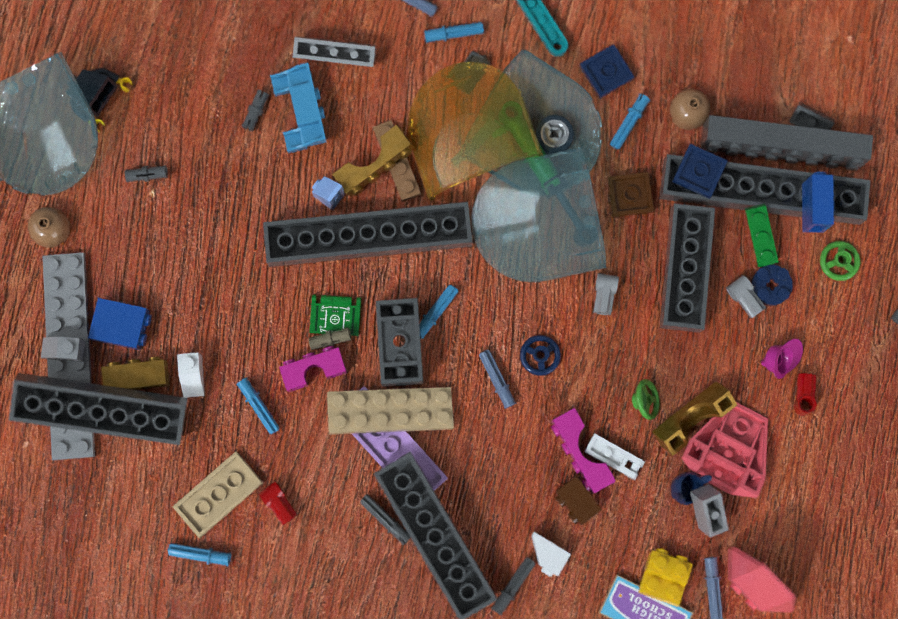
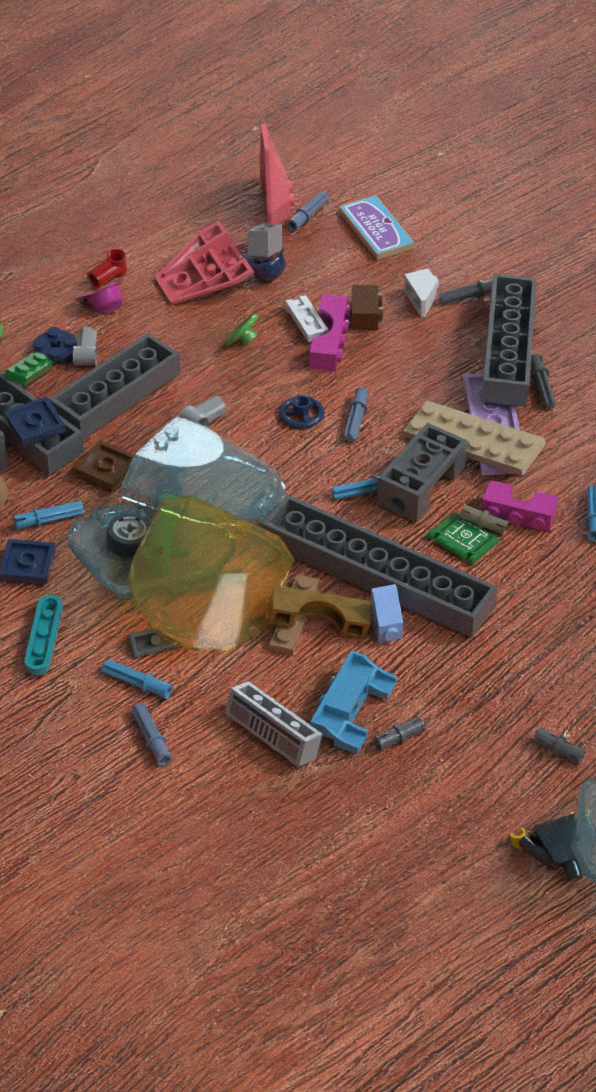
camera: 140 degrees left, 35 degrees down
(665, 577) = (340, 232): yellow plate -> none
(712, 402) = (187, 299): pearl gold arch -> none

